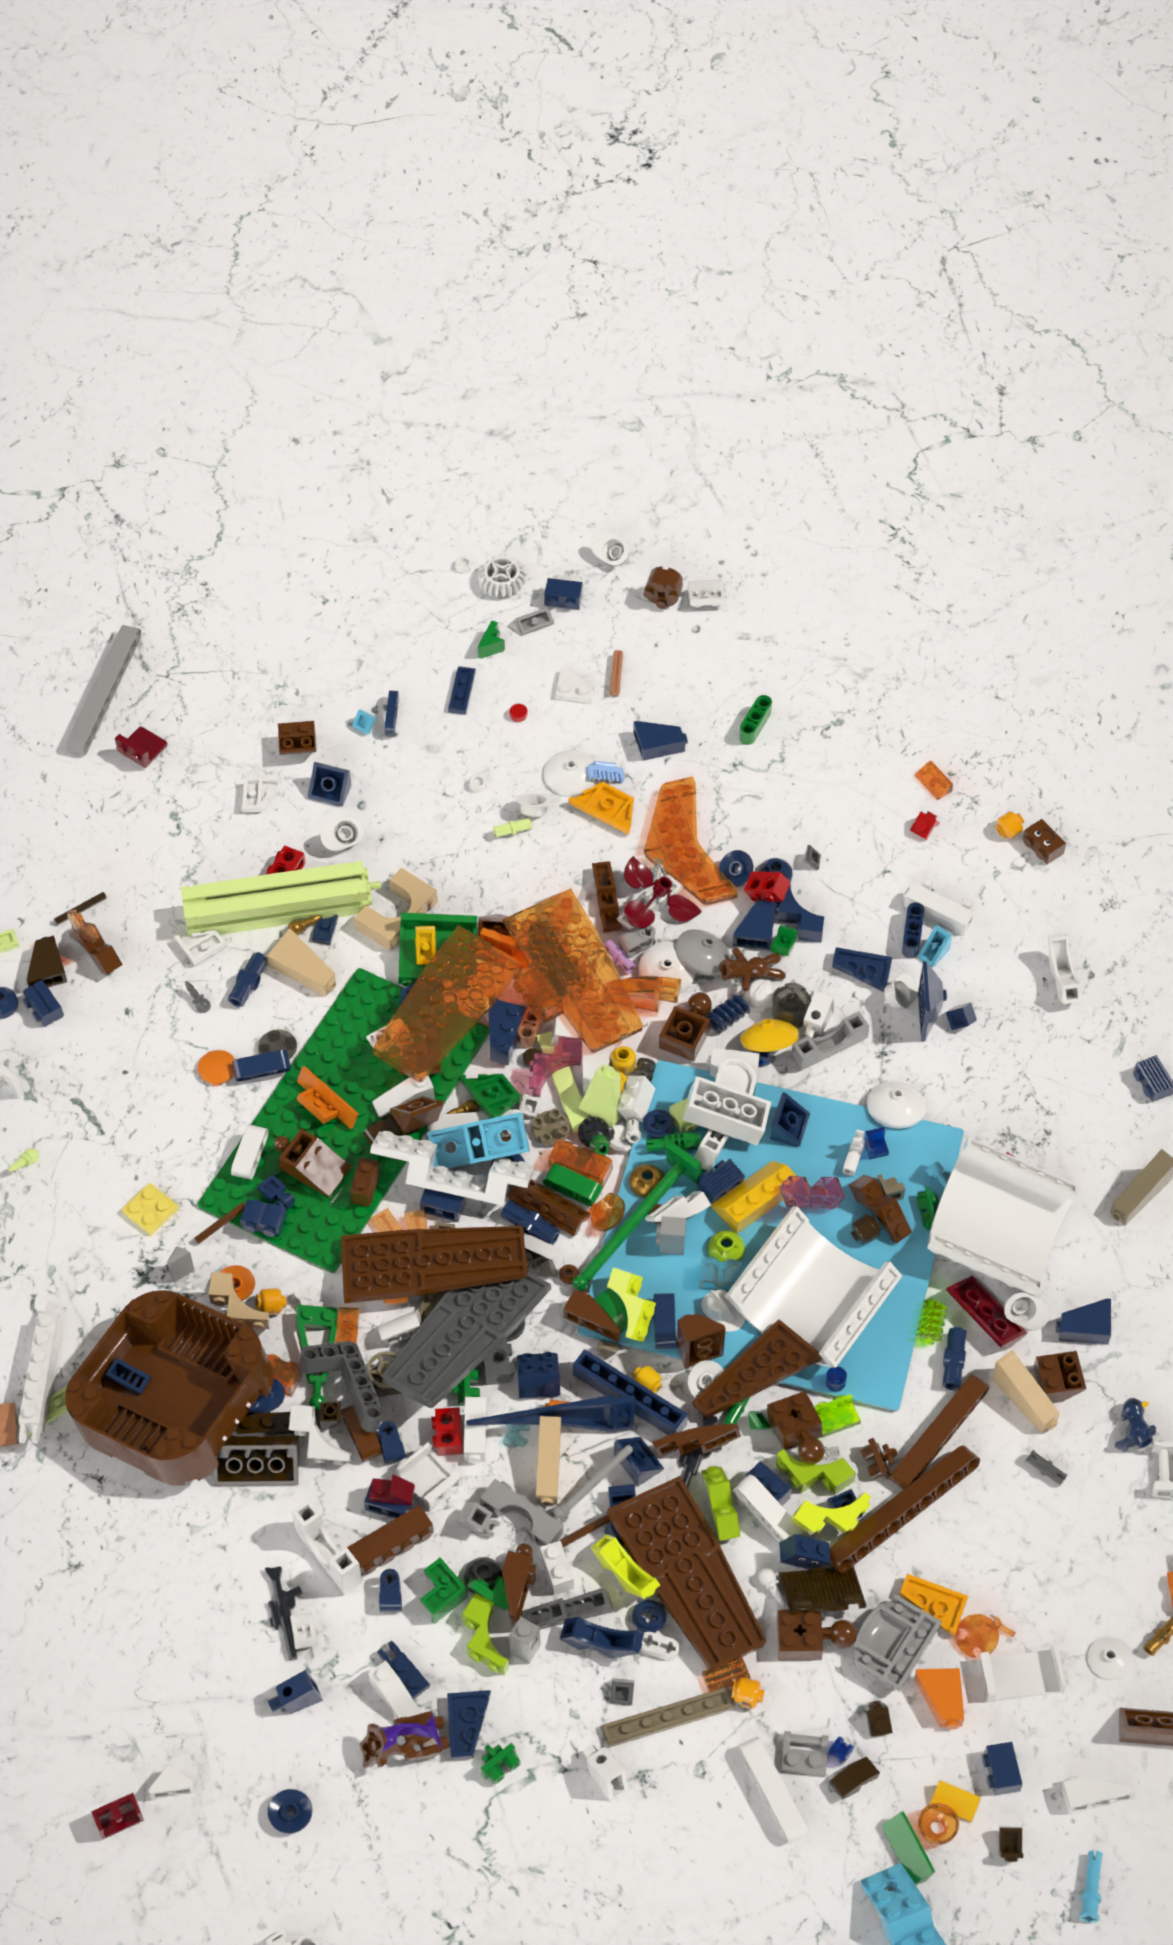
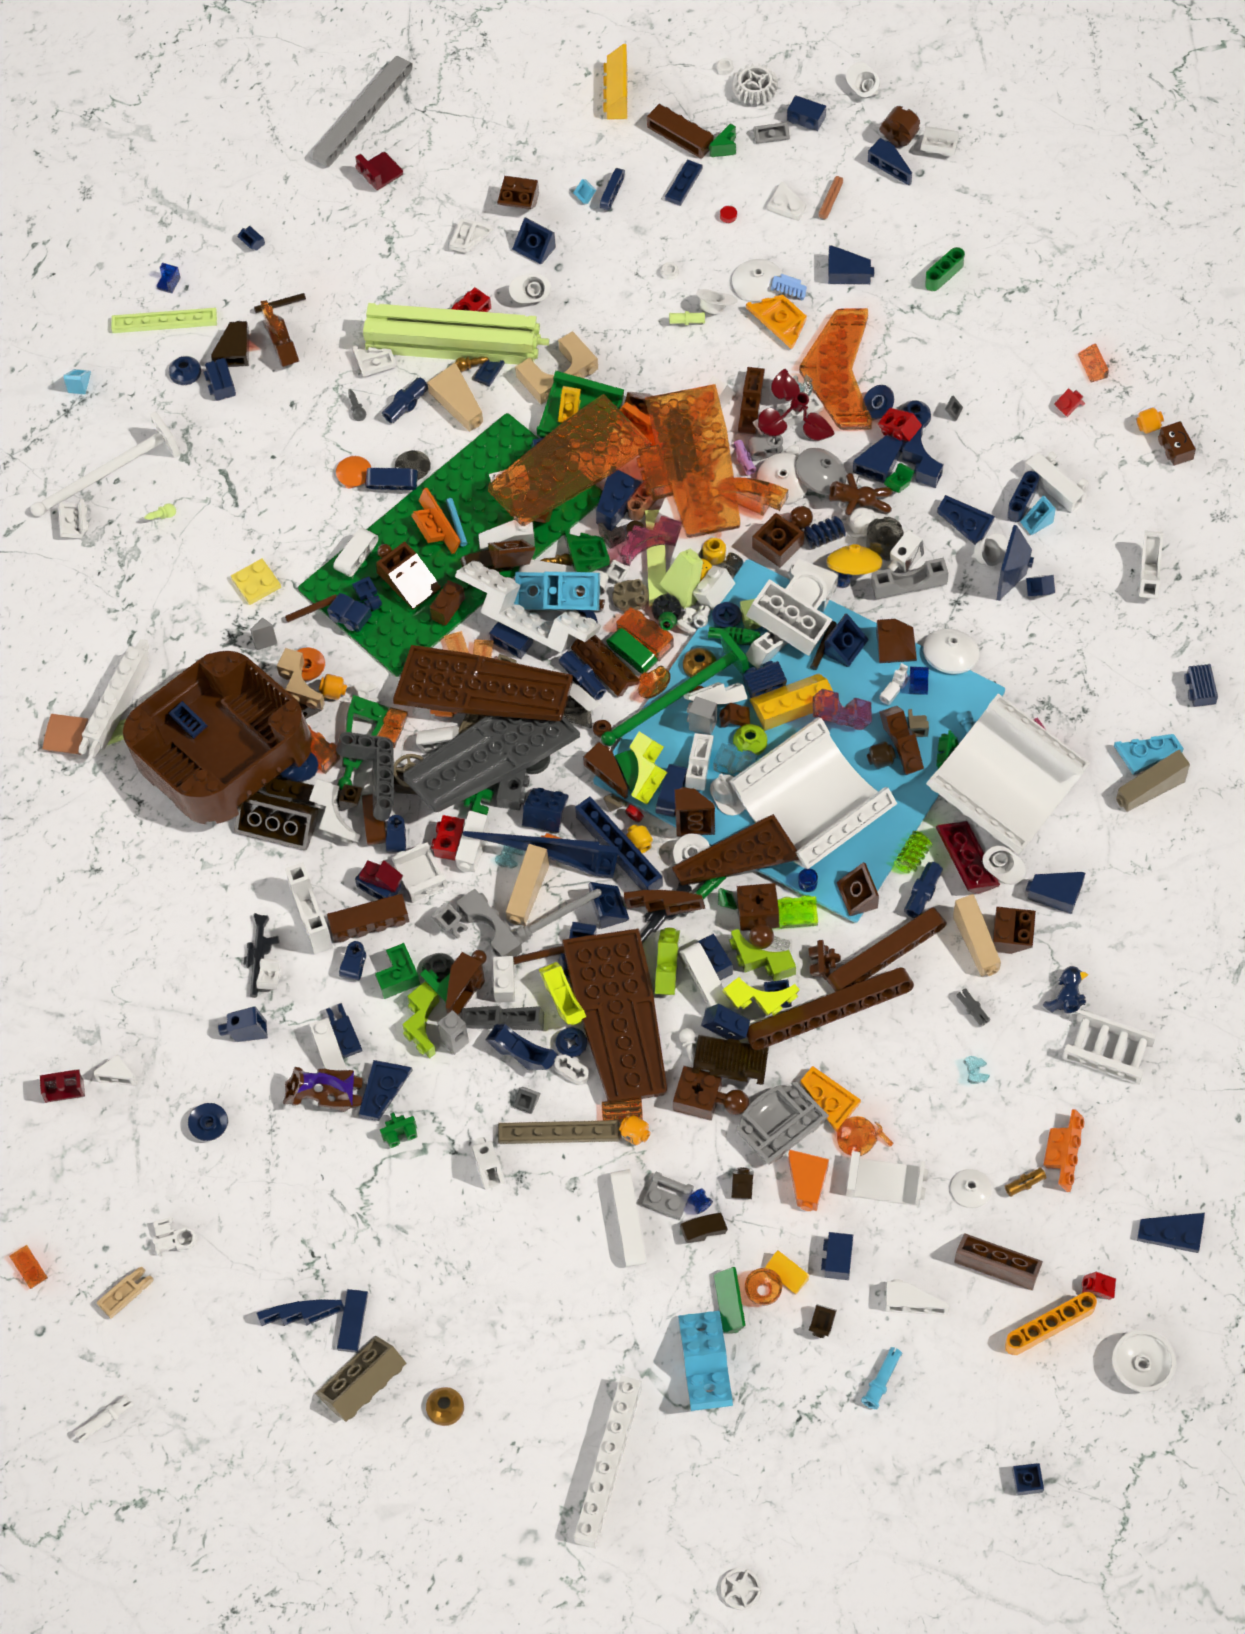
camera: 20 degrees right, 5 degrees up
(28, 847) = (251, 238): none -> dark blue piece
(344, 1093) = (456, 522): none -> medium azure bar
(361, 605) = (616, 84): none -> yellow slope
(441, 639) = (680, 130): none -> reddish brown brick
(513, 1071) = (613, 537): none -> clear smoke panel
(632, 1355) = (633, 813): none -> red tile
(663, 623) = (888, 159): none -> dark blue slope
(682, 1283) = (699, 761): none -> white slope
(702, 1225) = (735, 715): none -> reddish brown bracket
(766, 1136) = (820, 652): none -> dark brown bar
(837, 1109) = (895, 641): none -> reddish brown slope
(892, 1376) = (858, 891): none -> reddish brown slope
(1067, 1527) = (973, 1067): none -> clear light blue piece
(1125, 1160) = (1146, 753): none -> medium azure wing

